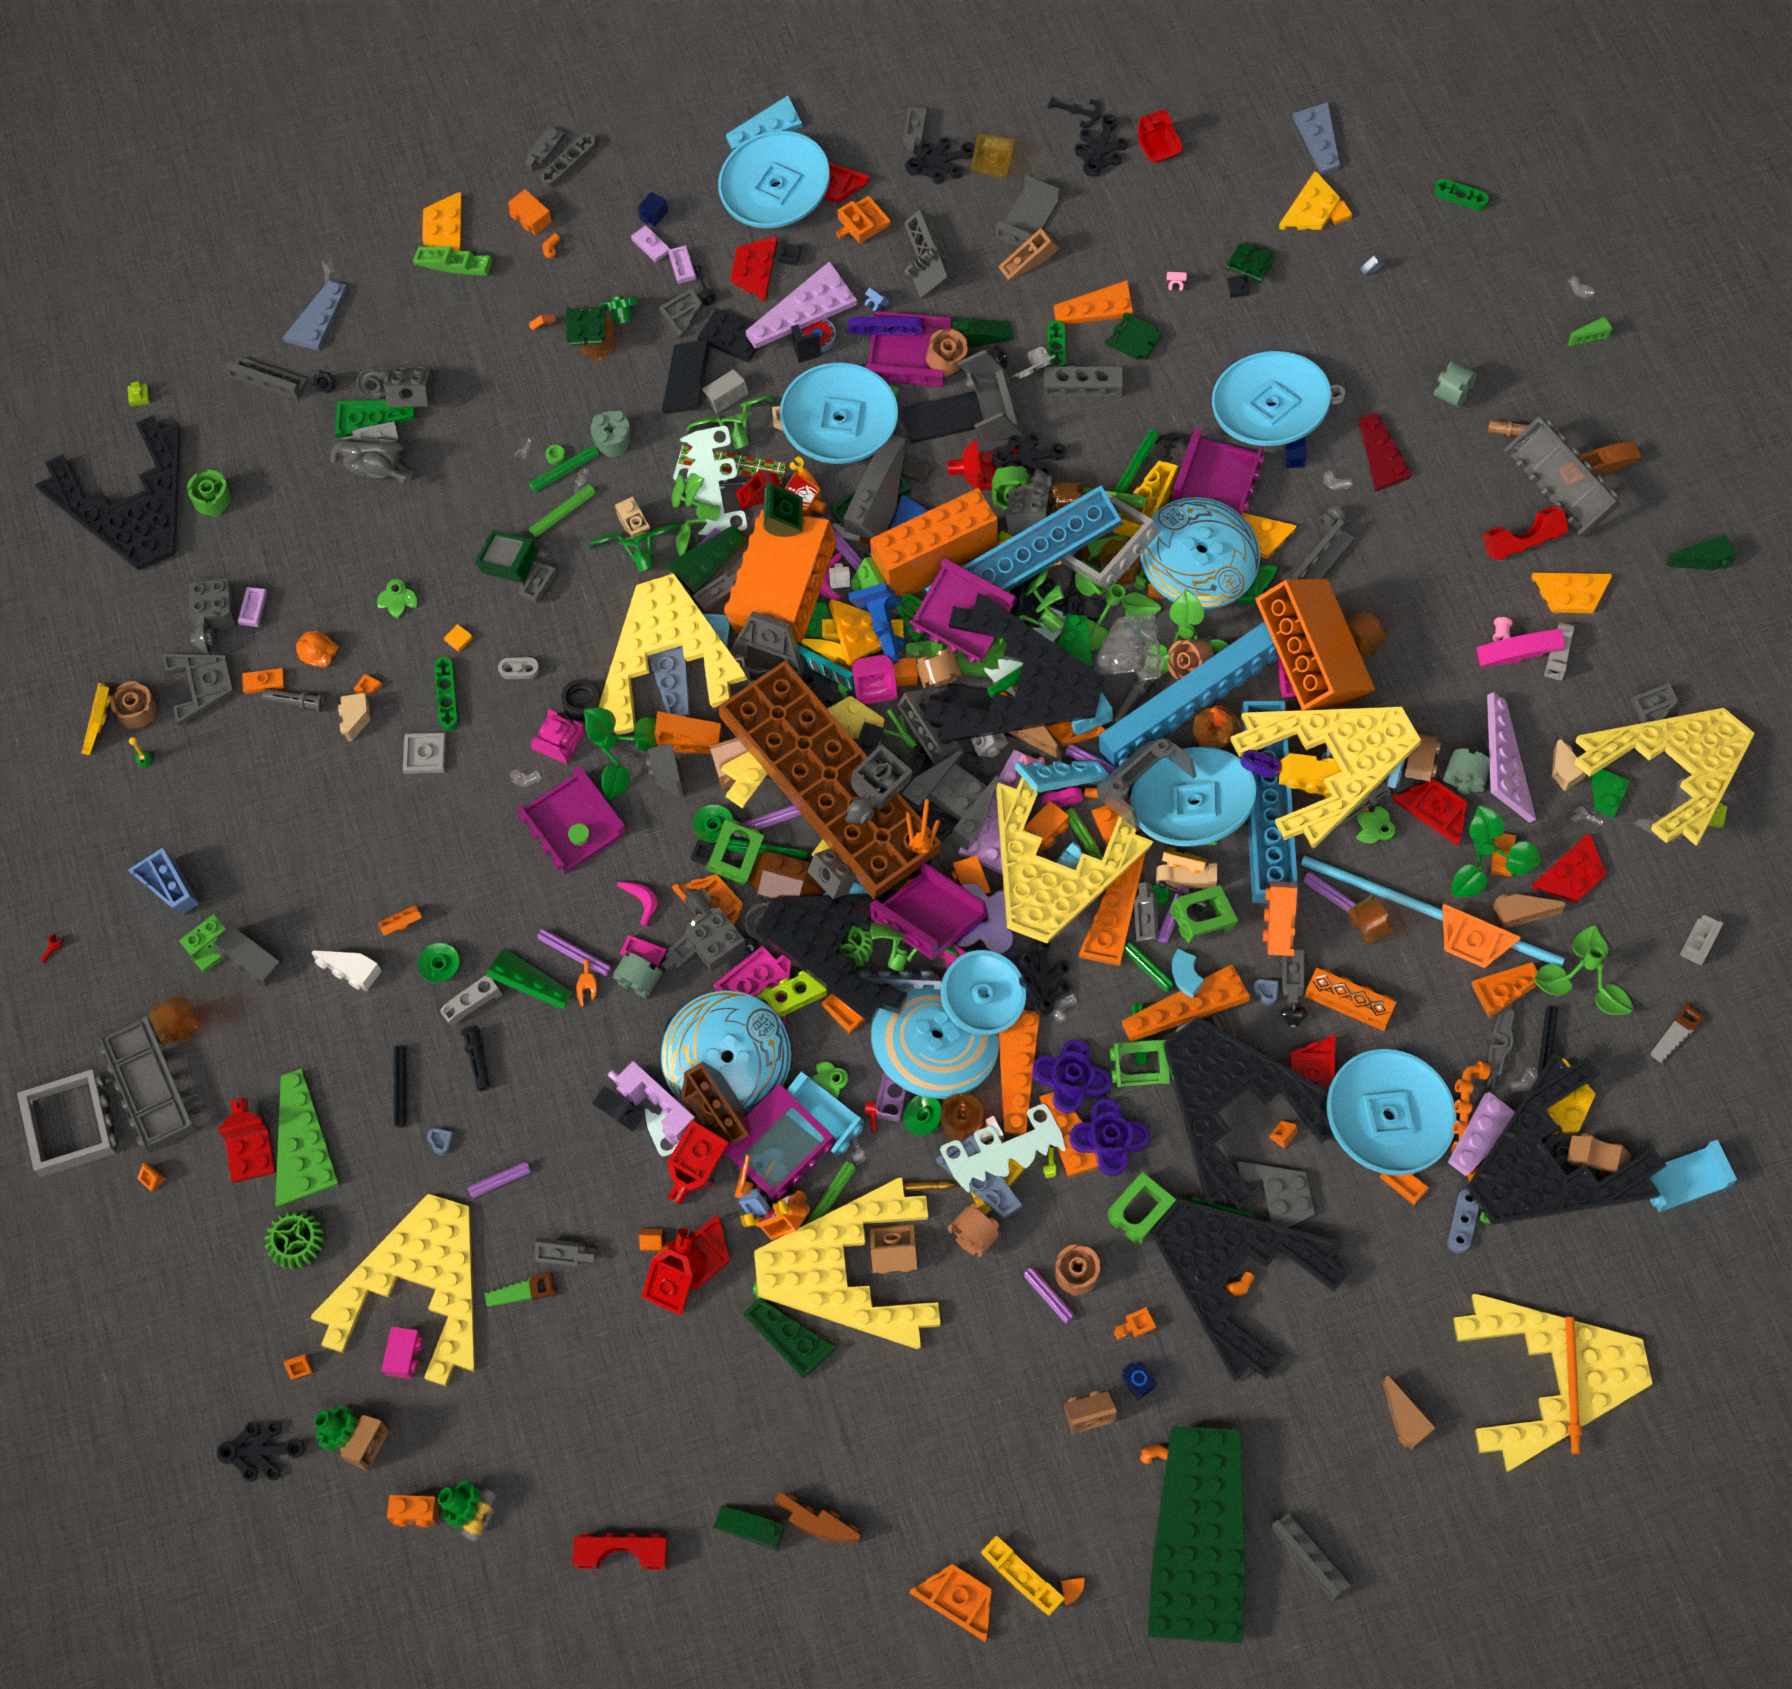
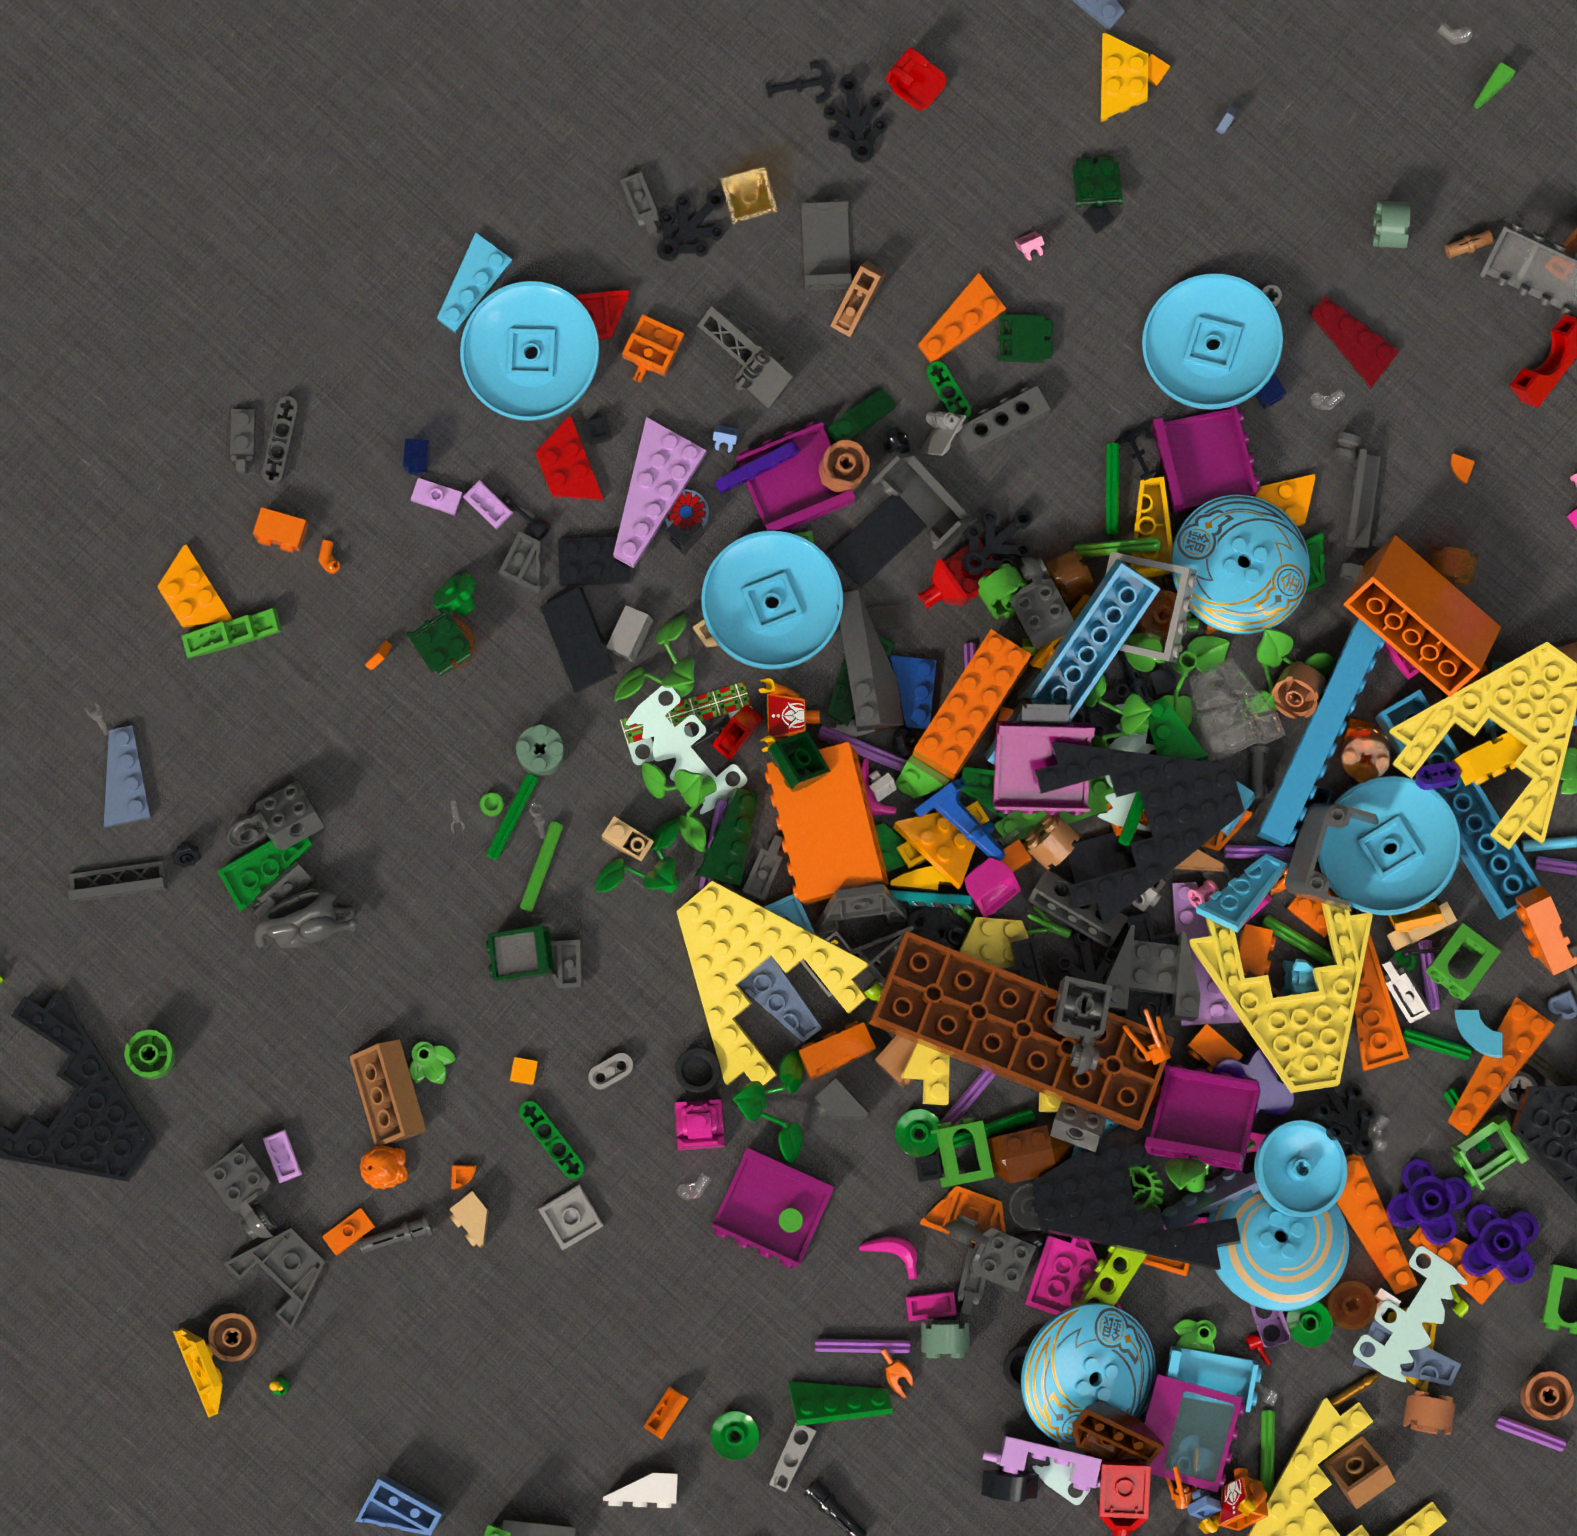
camera: 35 degrees left, 15 degrees up
(354, 601) = (387, 1093): none -> medium nougat slope
(986, 569) = (1045, 711): none -> panel
(1413, 575) = (1461, 467): none -> orange tile

